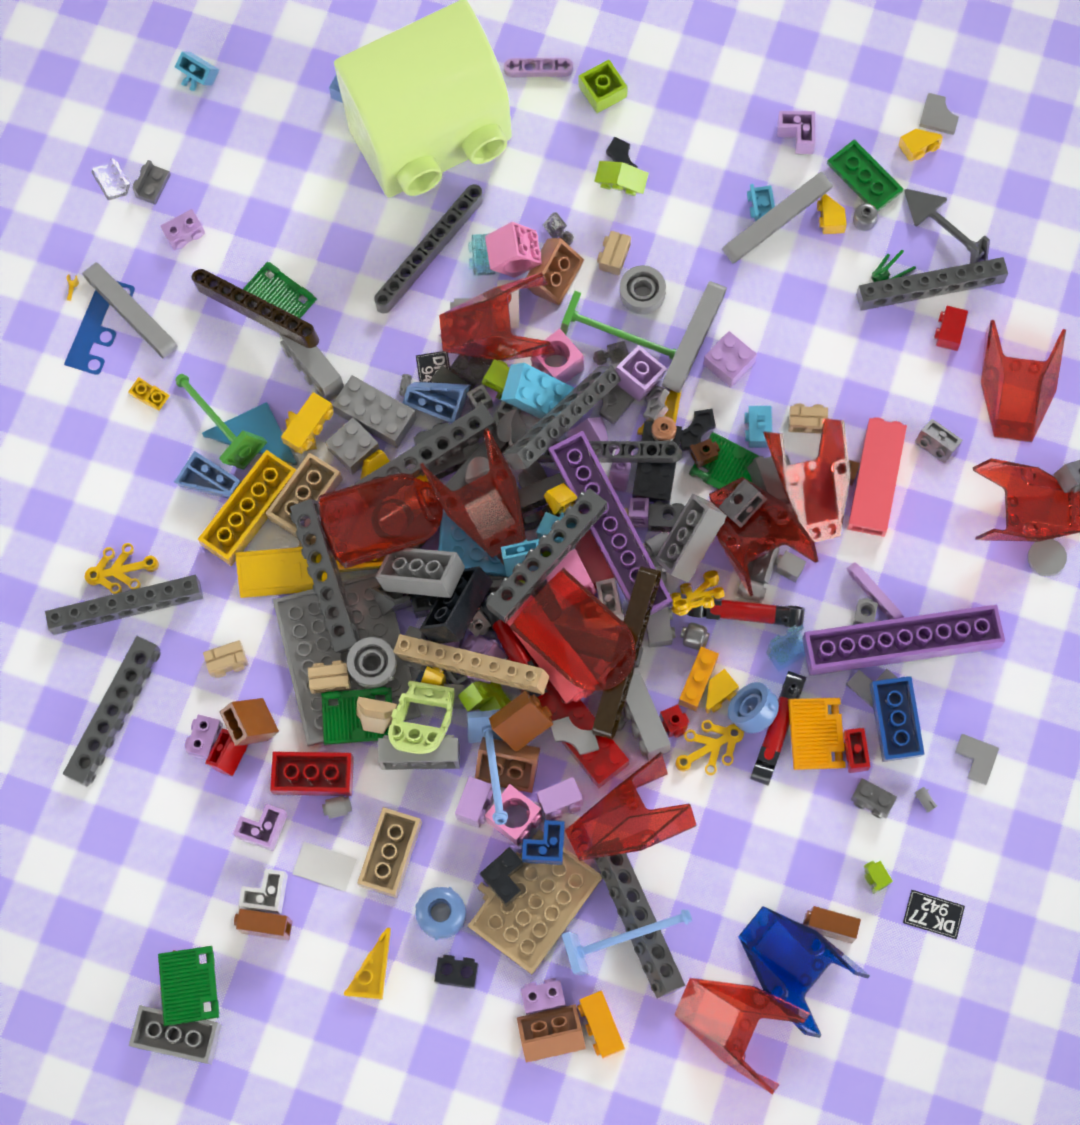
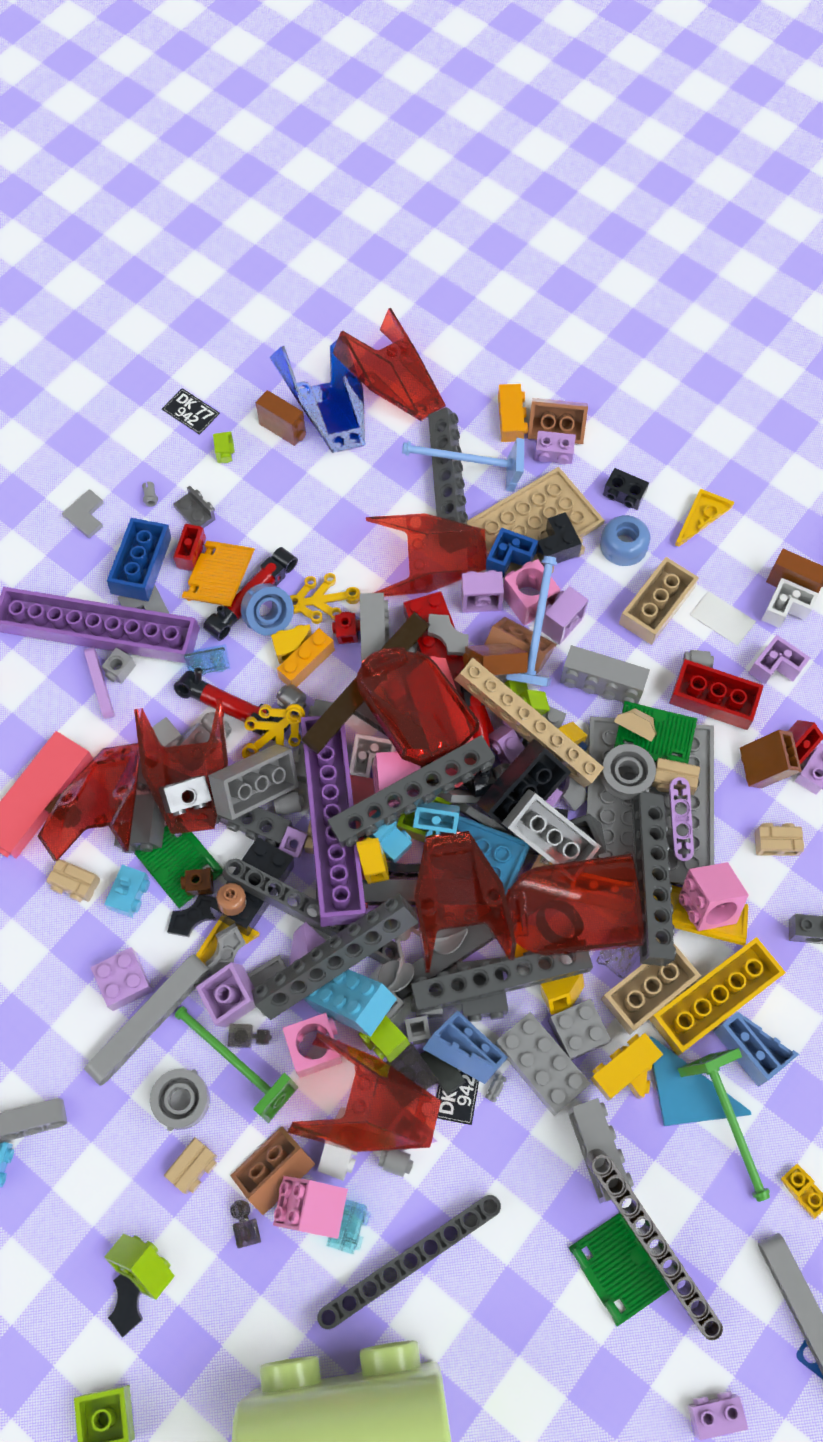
camera: 165 degrees left, 5 degrees down
(271, 577) = (713, 896): none -> bright pink brick
(314, 638) = (677, 819): none -> lavender beam
(417, 737) = (606, 675): yellowish green slope -> none
(619, 474) = (302, 885): lavender bracket -> none

